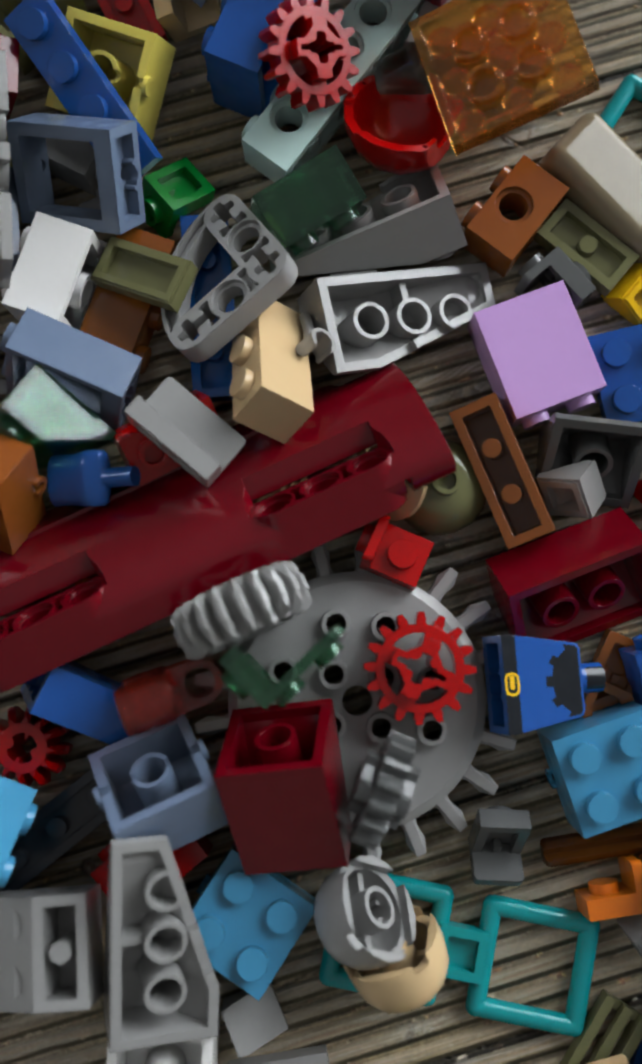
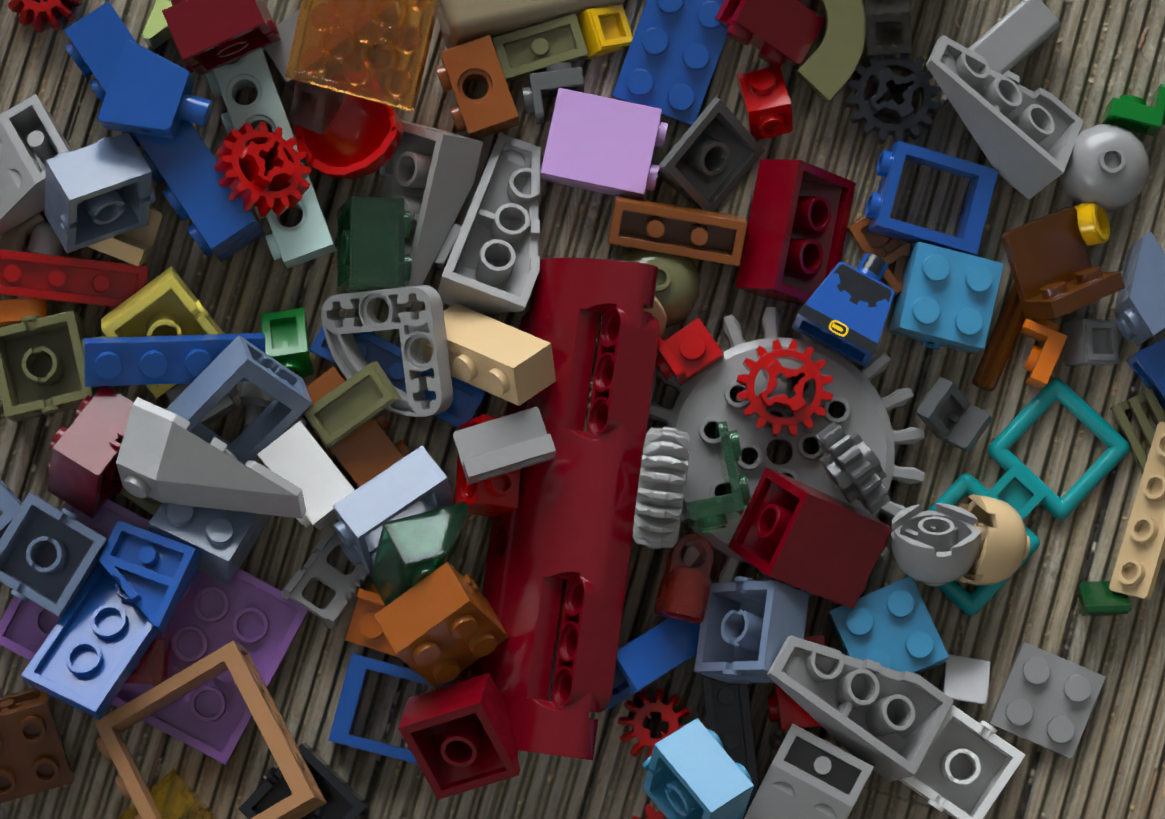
camera: 60 degrees left, 0 degrees up
(86, 478) = (486, 545): blue piece -> none
(315, 340) = (491, 308): light grey hand -> none
(573, 489) = (724, 185): light grey slope -> none

